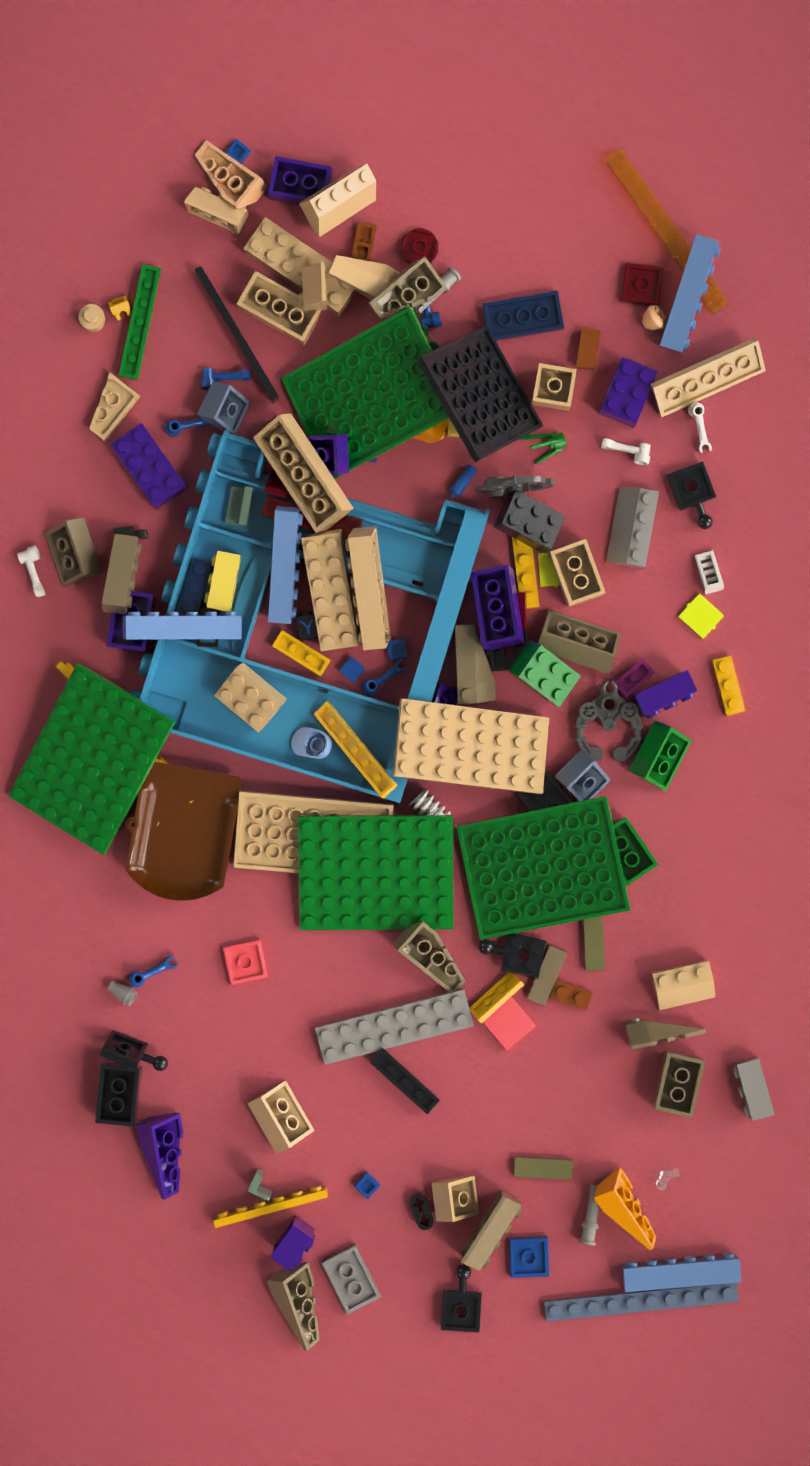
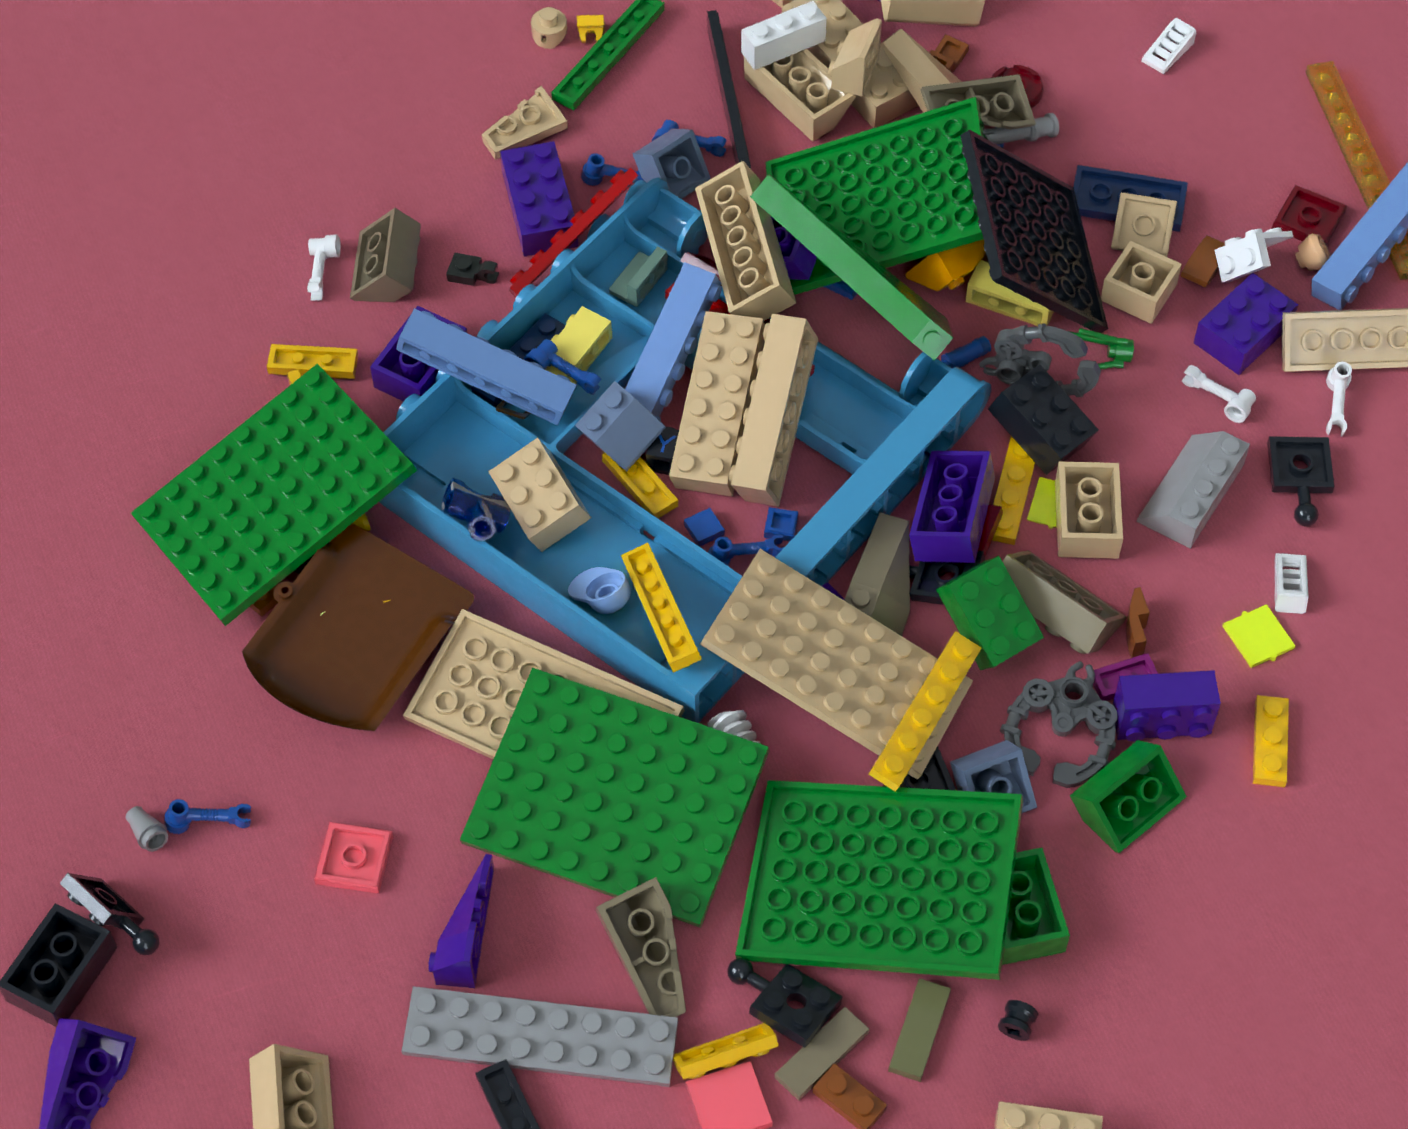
camera: 20 degrees right, 30 degrees down
(63, 645) = (333, 360): none -> yellow plate
(121, 574) = (438, 282): dark tan wedge -> none
(189, 490) = (581, 222): none -> red plate
(211, 601) = (546, 356): none -> blue brick
(220, 727) = (482, 513): none -> clear blue connector
(258, 283) = (783, 35): none -> white brick
(278, 630) = (620, 426): none -> sand blue slope
(329, 992) = (462, 939): none -> dark purple wedge
(402, 474) = (867, 277): none -> slope
(515, 158) = (1176, 31): none -> white slope
(532, 756) = (924, 711): none -> yellow plate
(540, 337) = (1145, 222): none -> tan tile
(612, 343) = (1248, 254): none -> white bracket
(627, 633) = (1136, 622): none -> dark orange slope
(644, 917) = (1018, 1020): none -> black wheel

